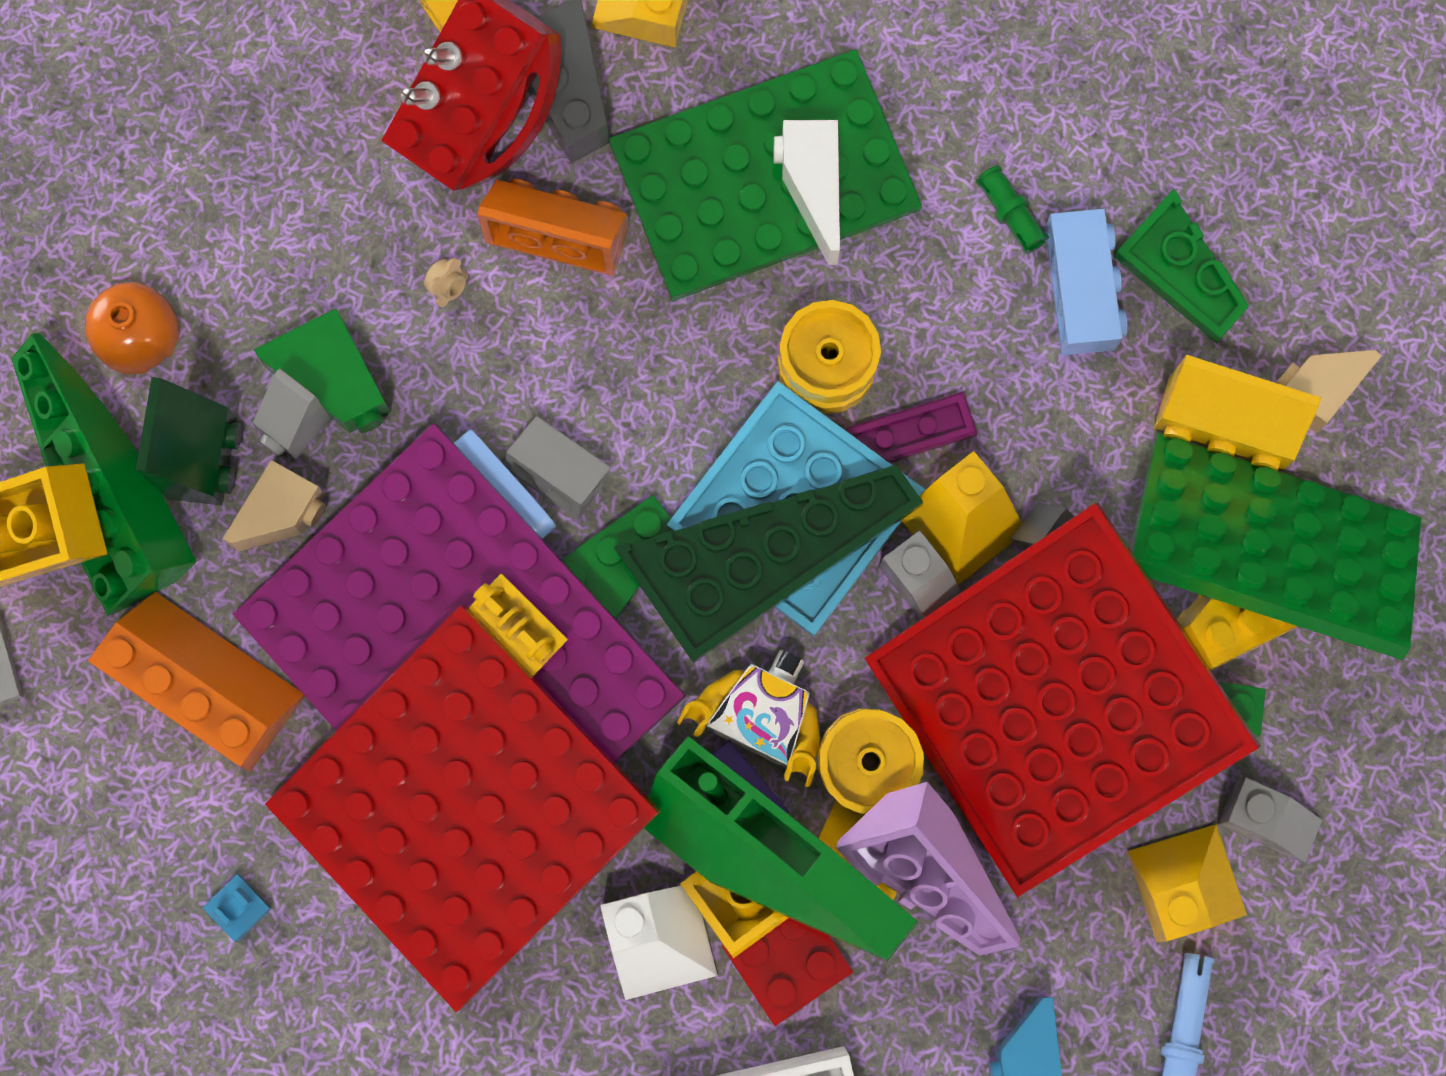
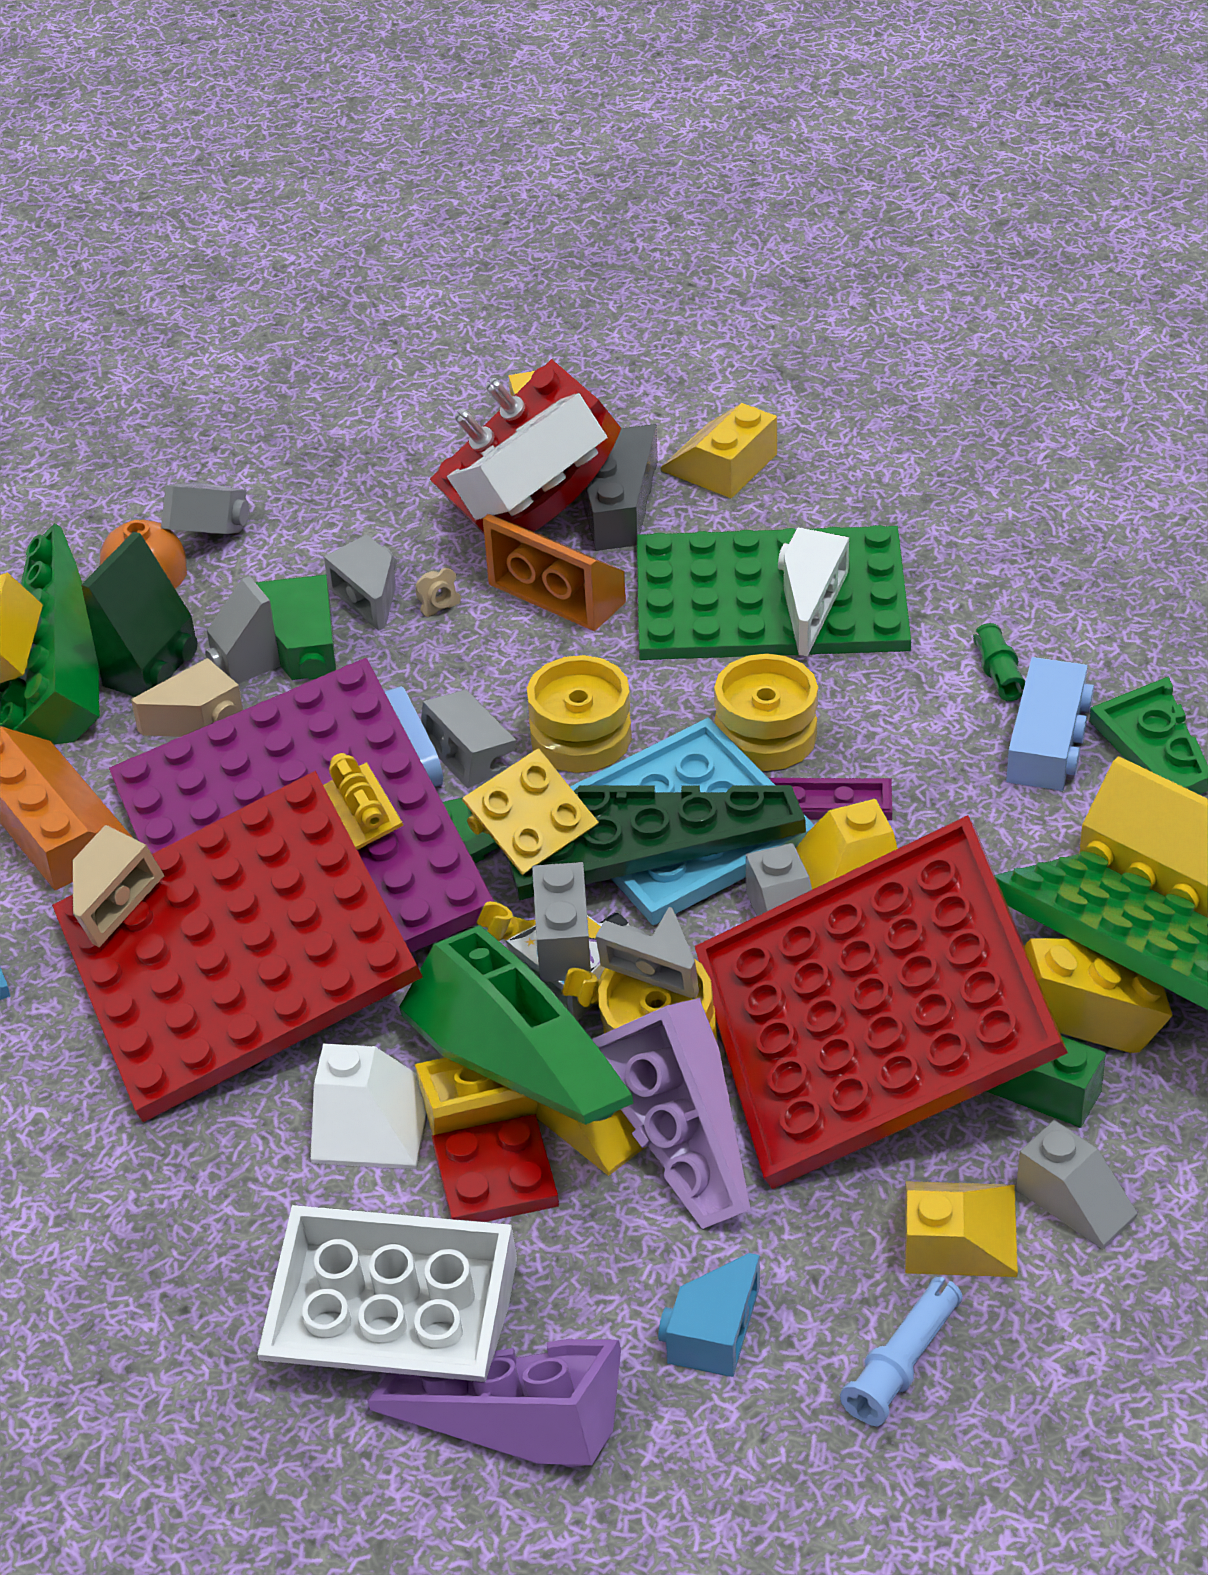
camera: 25 degrees right, 35 degrees down
(168, 247) = (204, 508): none -> light grey slope
(323, 793) = (110, 881): none -> tan slope
(369, 286) = (363, 578): none -> light grey slope
(500, 131) = (530, 459): none -> white wedge
(656, 386) = (580, 713): none -> yellow wheel
(676, 583) = (528, 811): none -> yellow hinge
(759, 707) = (560, 919): none -> light grey brick
(878, 737) = (655, 959): none -> light grey slope

